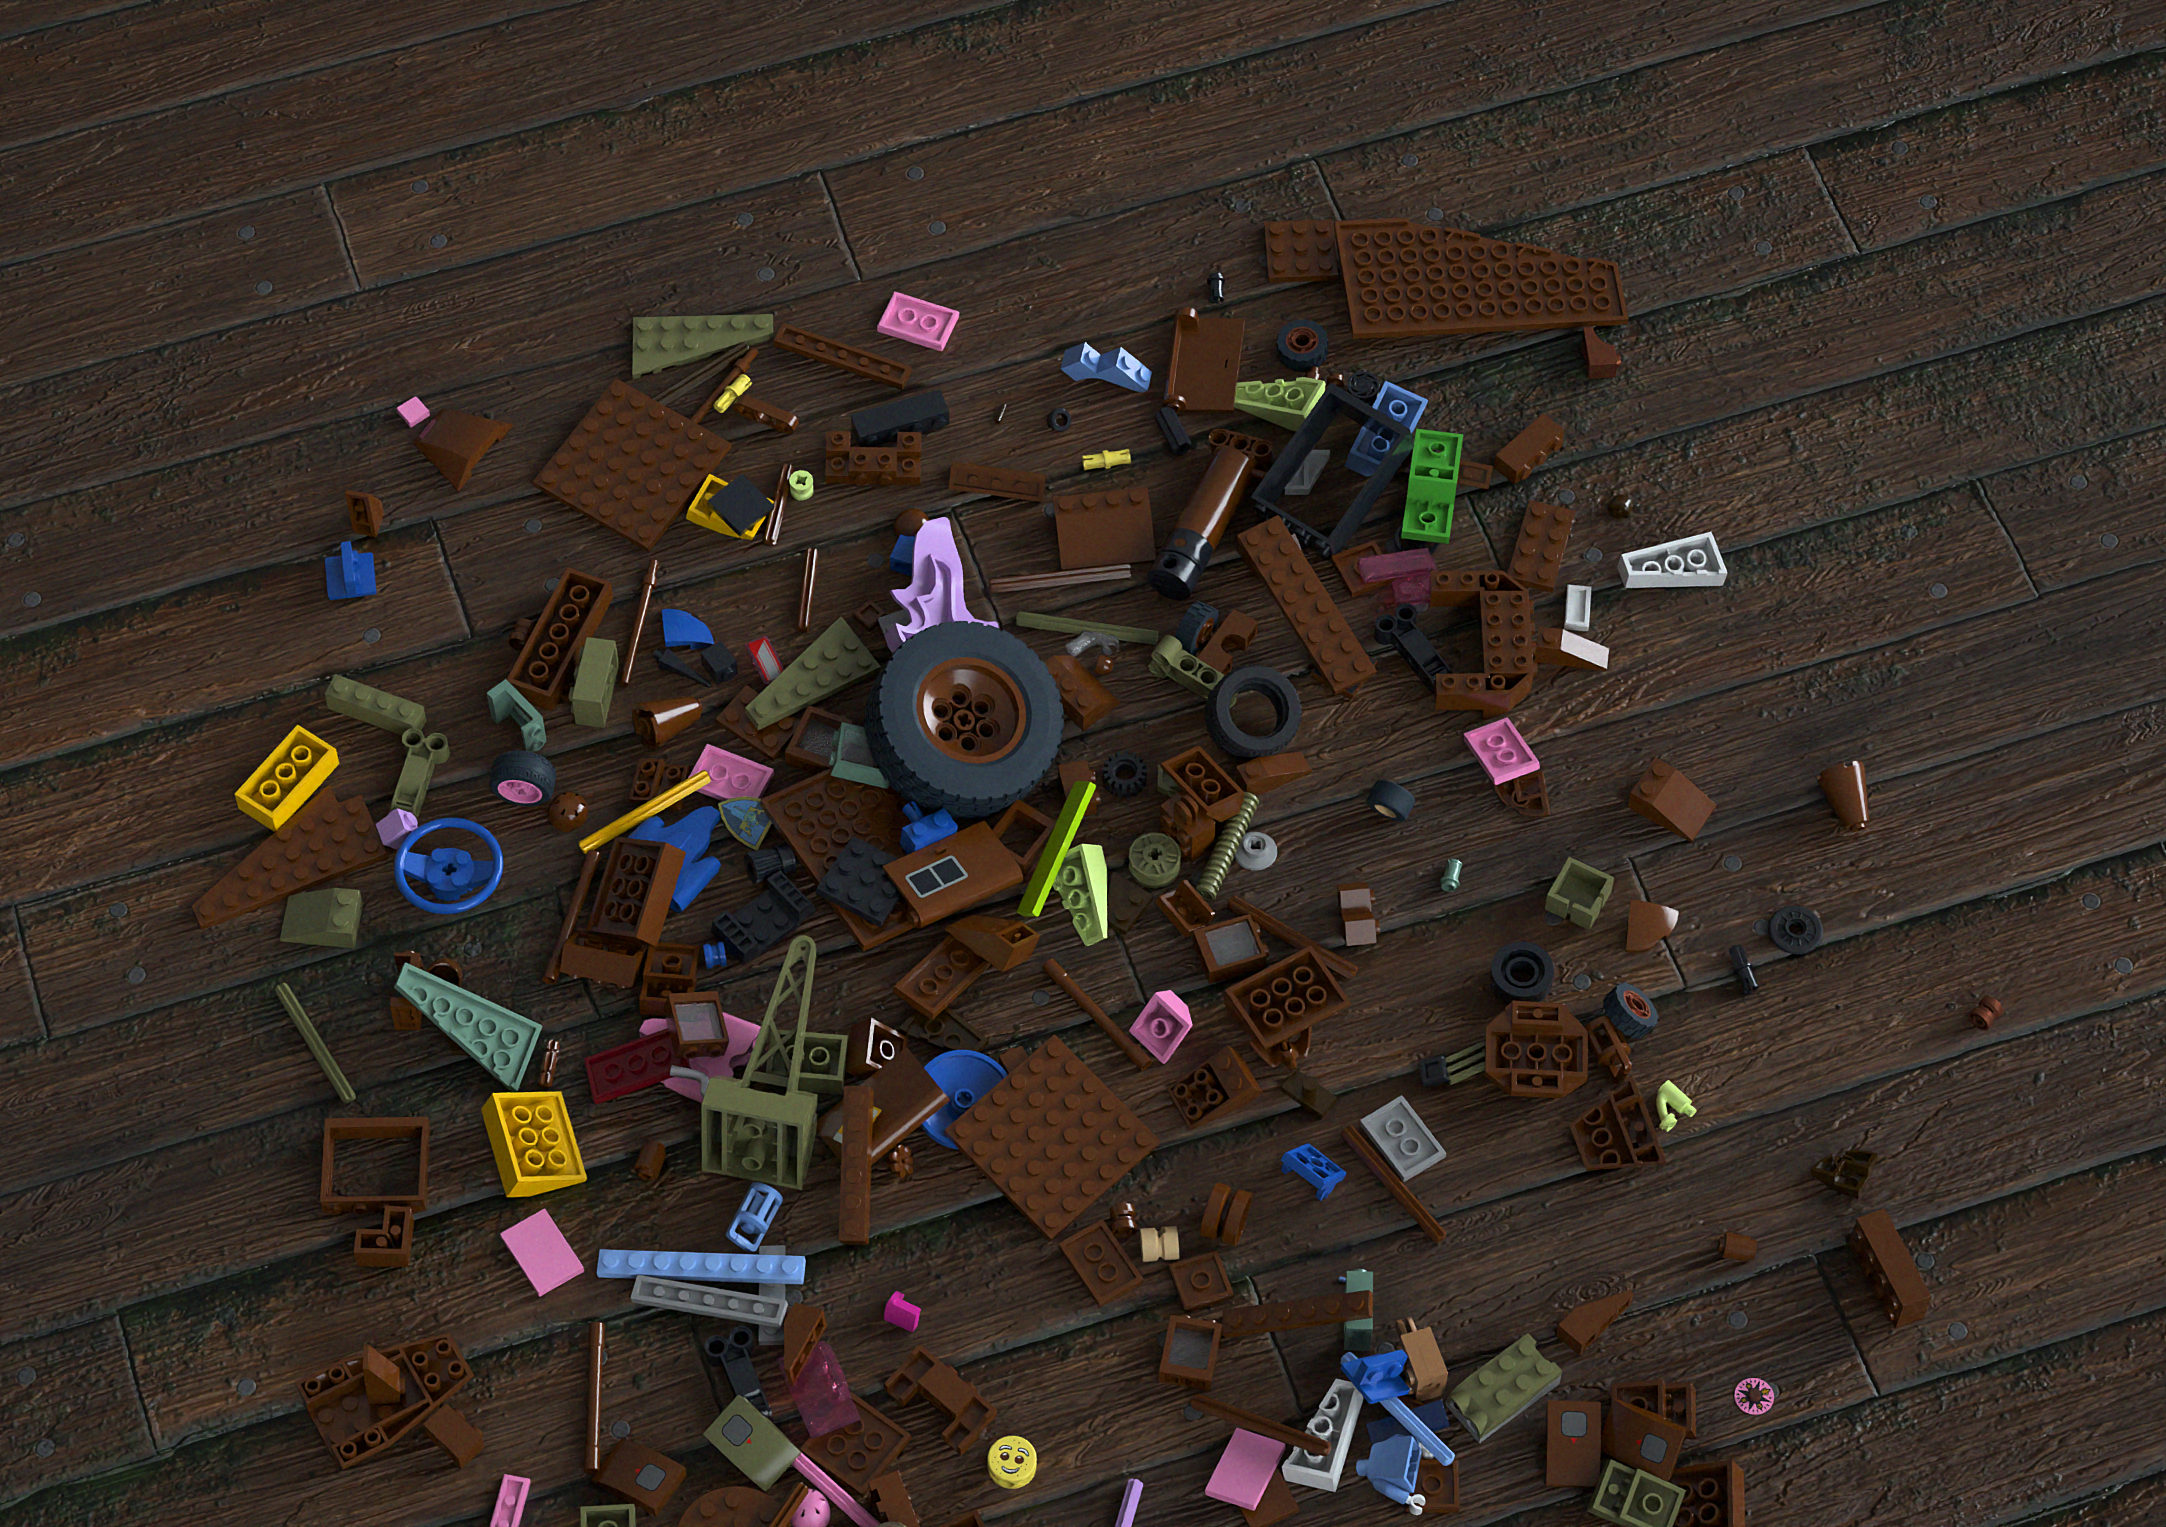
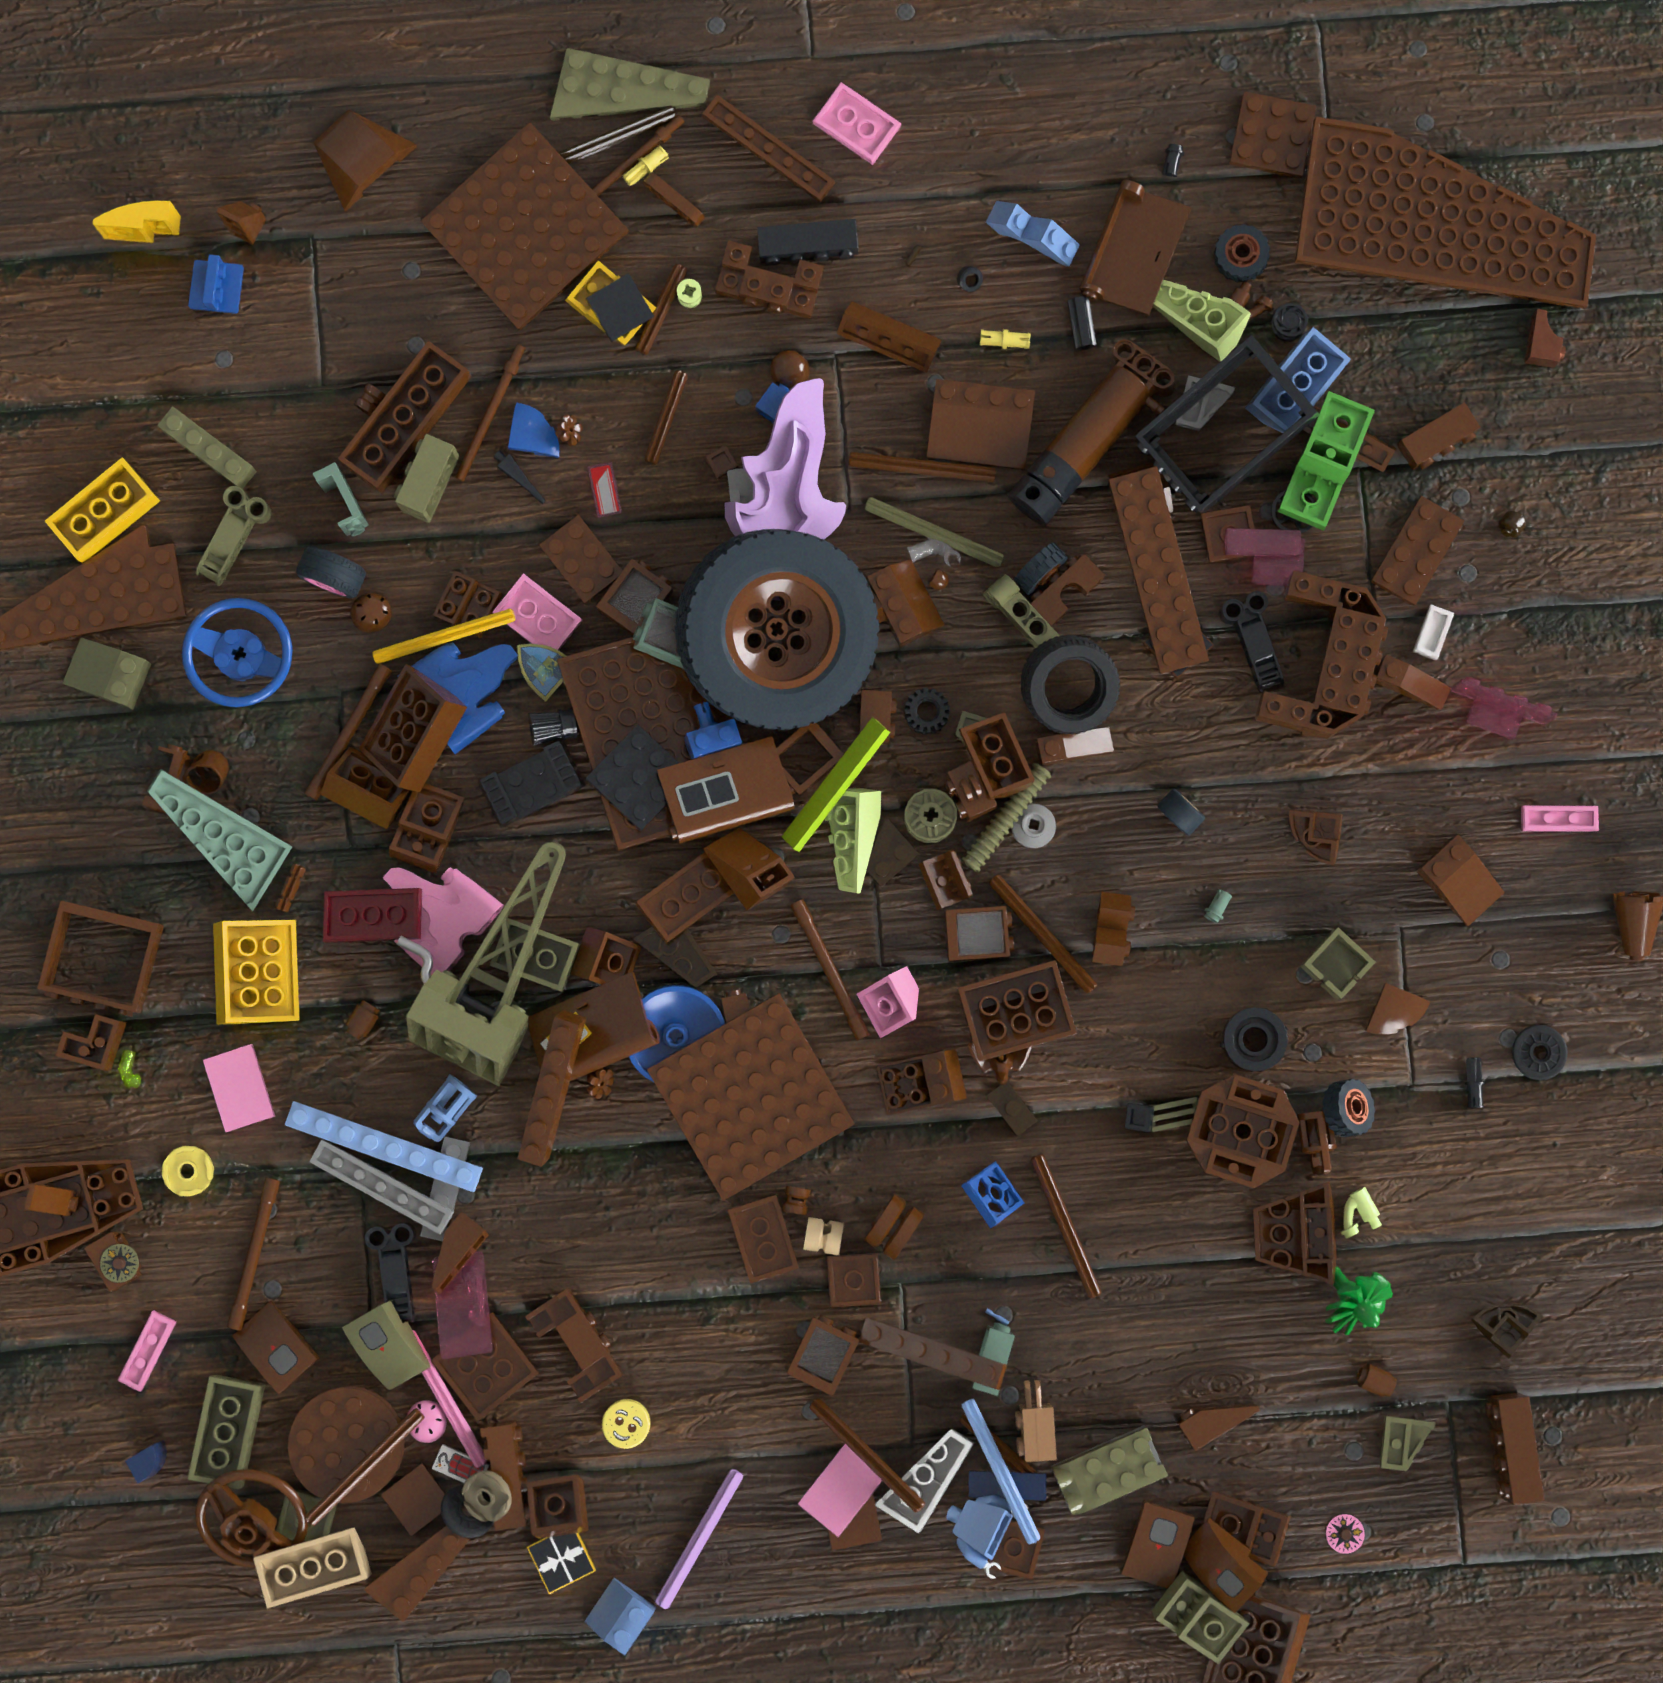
camera: 15 degrees right, 25 degrees up
(265, 534) = (139, 221): none -> yellow slope
(315, 1043) = (72, 807): olive axle -> none
(396, 827) = (198, 594): lavender brick -> none
(413, 411) = (320, 106): bright pink tile -> none
(423, 1258) = (125, 1070): none -> clear neon green arm
(462, 1429) = (119, 1263): none -> piece
(508, 1353) = (202, 1174): none -> light yellow tile
(664, 718) = (489, 535): reddish brown cone -> none
(696, 1024) = (434, 898): reddish brown window -> none
(714, 955) = (475, 812): blue wheel -> none
(718, 618) = (568, 430): none -> reddish brown plant
(719, 663) = (557, 483): black brick -> none
(821, 671) = (659, 516): olive wing -> none
(901, 1312) = (560, 1242): dark pink tile -> none
(1378, 1375) = (988, 1441): blue bracket -> none
(1402, 1138) = (1088, 1181): light grey plate -> none
(1501, 751) = (1307, 783): bright pink plate -> none
(1659, 650) = (1498, 711): none -> clear pink bracket
(1674, 564) = (1551, 613): white wedge -> none
(1695, 1168) = (1359, 1301): none -> green piece
(1746, 732) = (1559, 818): none -> bright pink tile
(1780, 1295) = (1402, 1441): none -> olive wing

